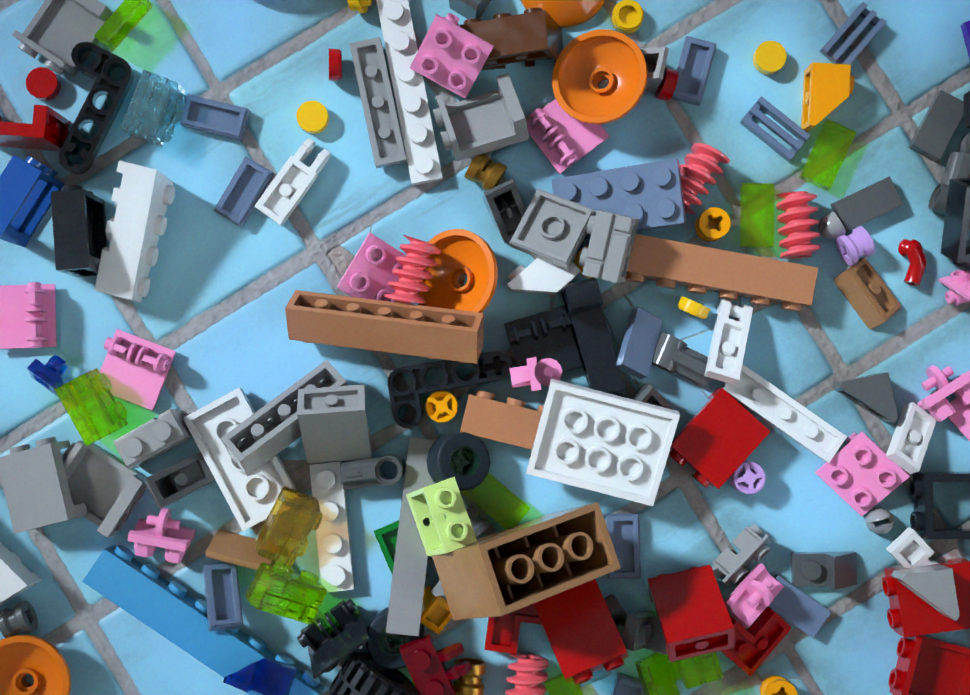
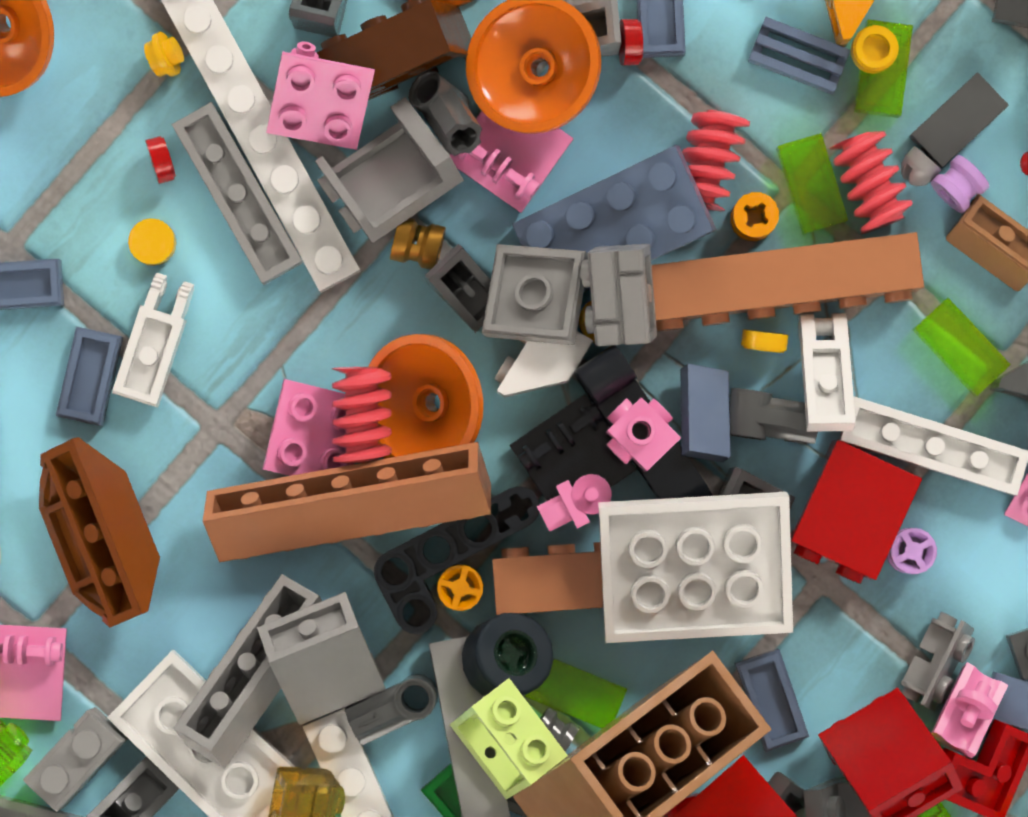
camera: 20 degrees left, 0 degrees up
(216, 293) = (98, 531): none -> dark orange wedge
(531, 90) = (446, 112): none -> dark grey piece
(606, 338) = (659, 434): none -> bright pink brick
(821, 353) = (961, 347): none -> clear neon green tile
(826, 139) = (874, 49): none -> yellow tile

